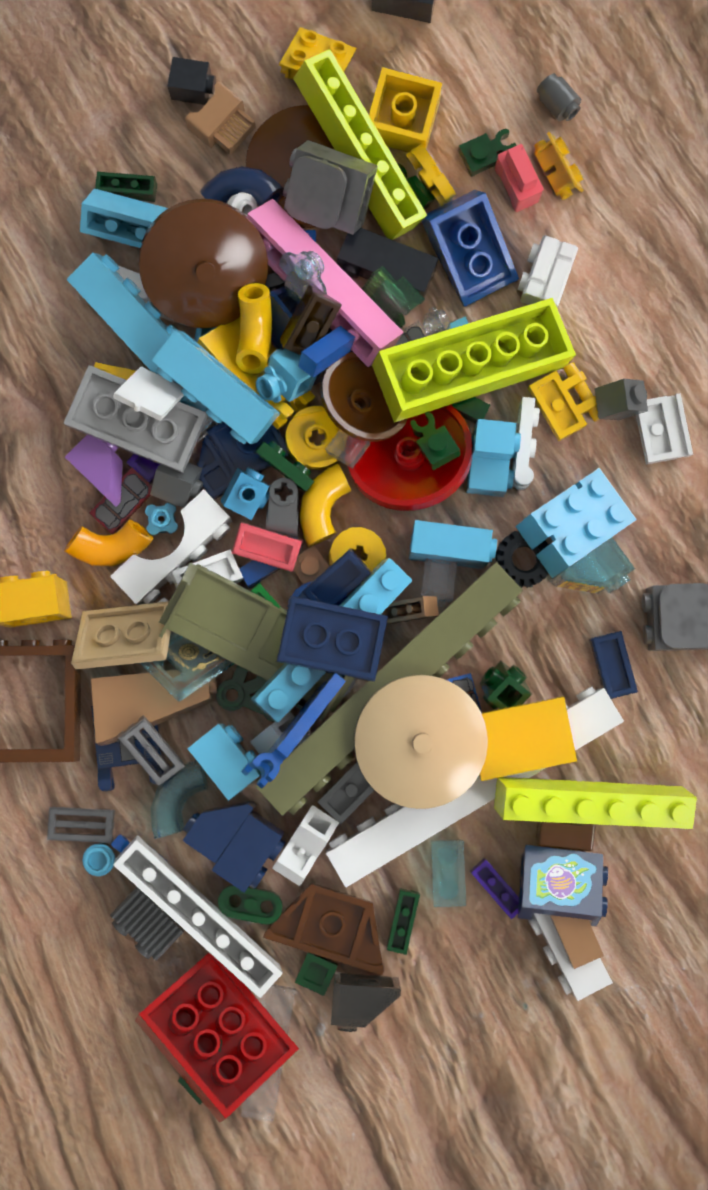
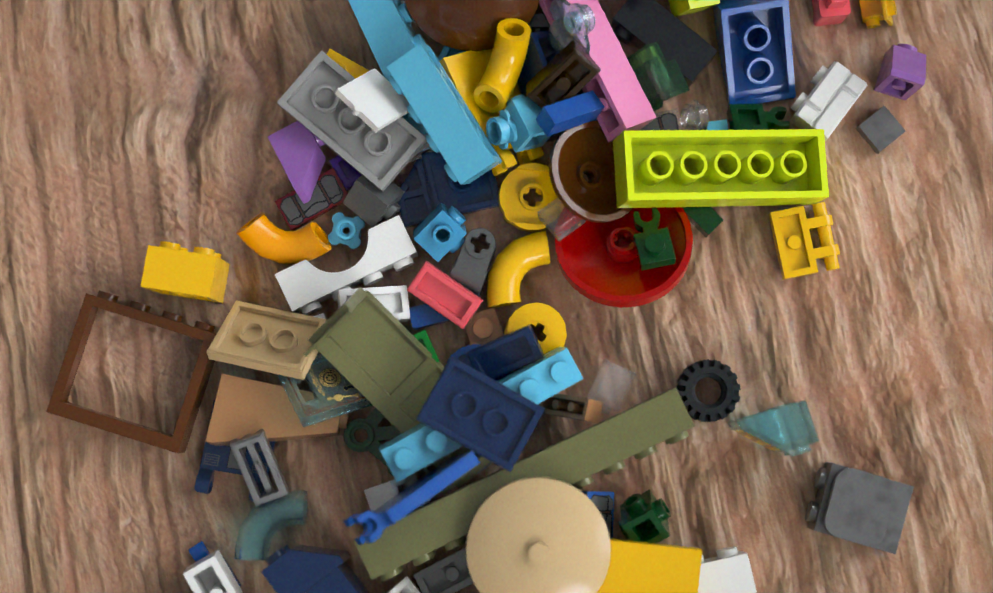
camera: 25 degrees right, 0 degrees up
(98, 859) = (171, 560): medium azure plate -> none
(108, 825) = (191, 528): flat silver tile -> none
(224, 758) = (331, 500): medium azure brick -> none
(274, 457) = (482, 203): dark green plate -> none
(452, 543) = (637, 353): medium azure brick -> none
(489, 306) = (755, 118): none -> dark green plate
(493, 448) = (710, 268): medium azure brick -> none
(527, 418) = (746, 273): white plate -> none
(576, 522) = (774, 372): medium azure piece -> none
(601, 284) = (880, 129): none -> flat silver tile
(604, 228) = (901, 72): none -> medium lavender slope
(613, 664) = (765, 531): dark blue tile -> none
(621, 399) = (862, 257): dark grey brick -> none
(664, 430) = (896, 301): white plate -> none

